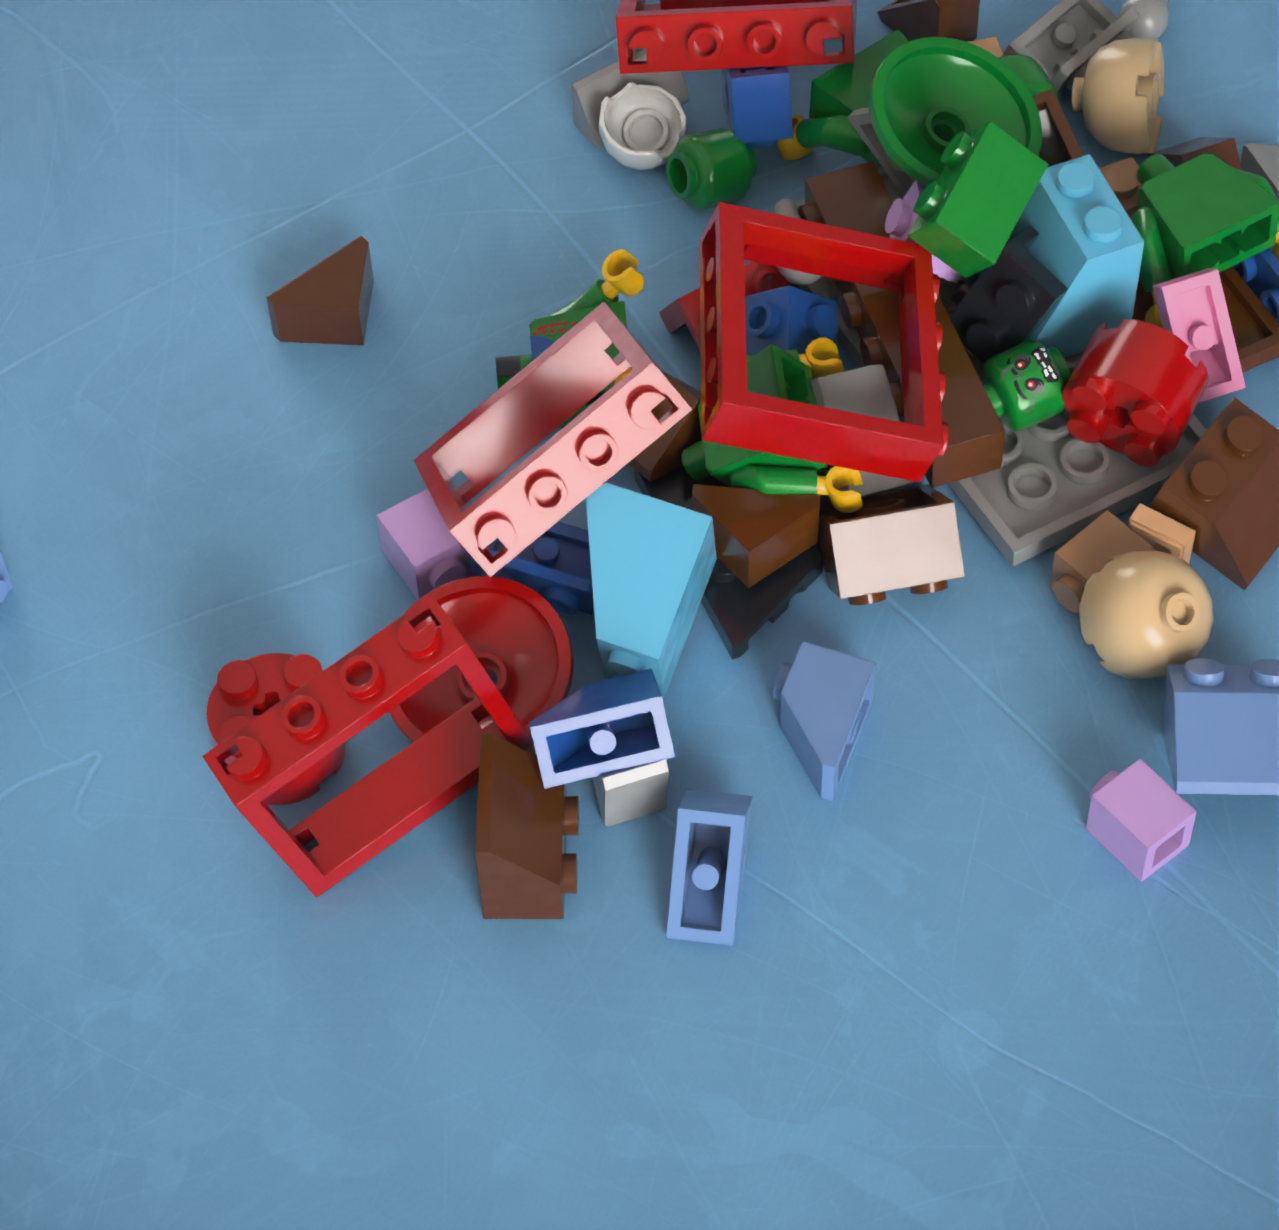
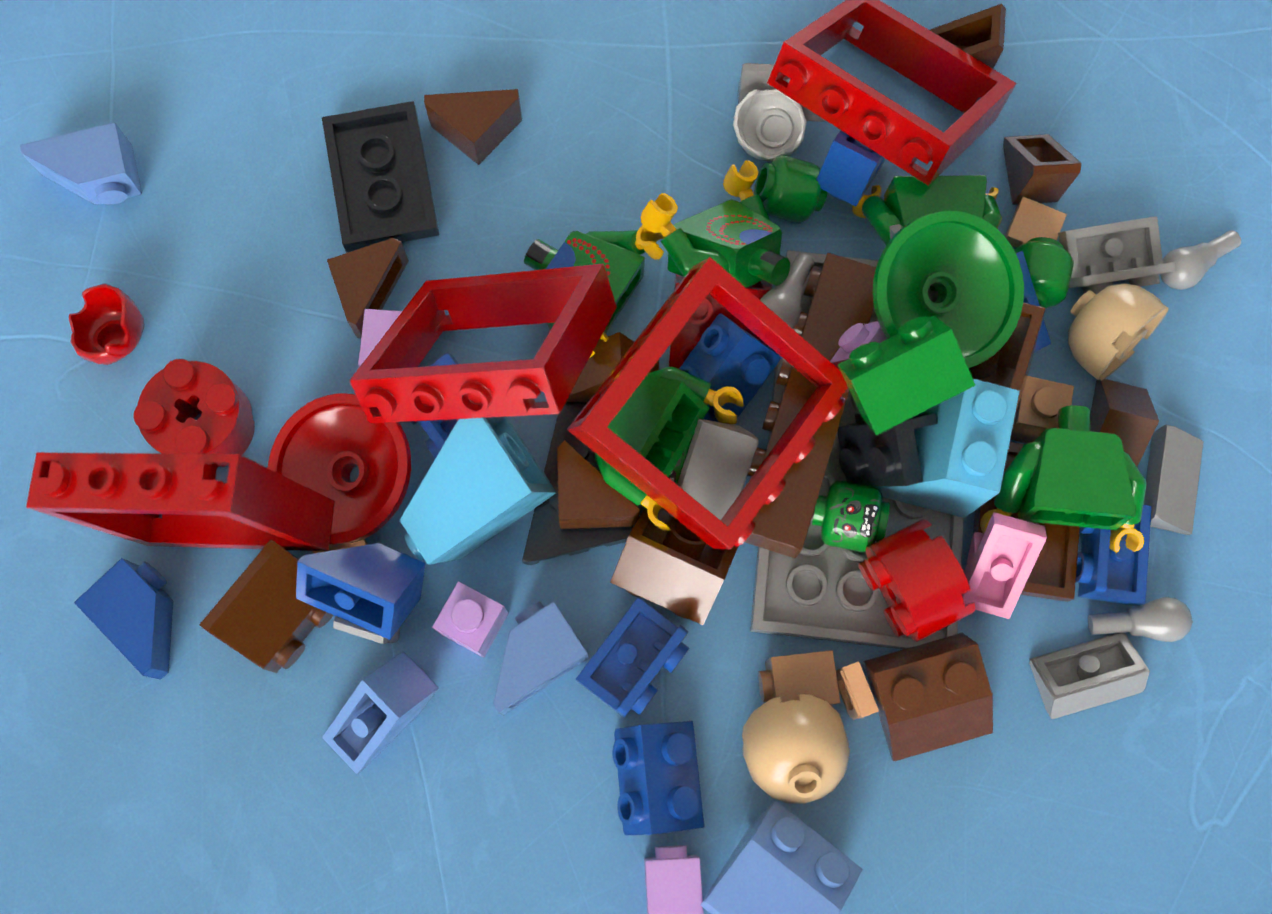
camera: 30 degrees right, 20 degrees up
(97, 708) = (106, 325): none -> red hair
(274, 407) = (379, 176): none -> black plate
(340, 508) = (367, 278): none -> reddish brown slope
(369, 950) = (133, 614): none -> blue slope
(671, 241) = (731, 233): none -> green torso
(730, 721) = (470, 619): none -> lavender brick
(922, 655) = (632, 658): none -> blue bracket
(1035, 742) = (658, 778): none -> blue bracket

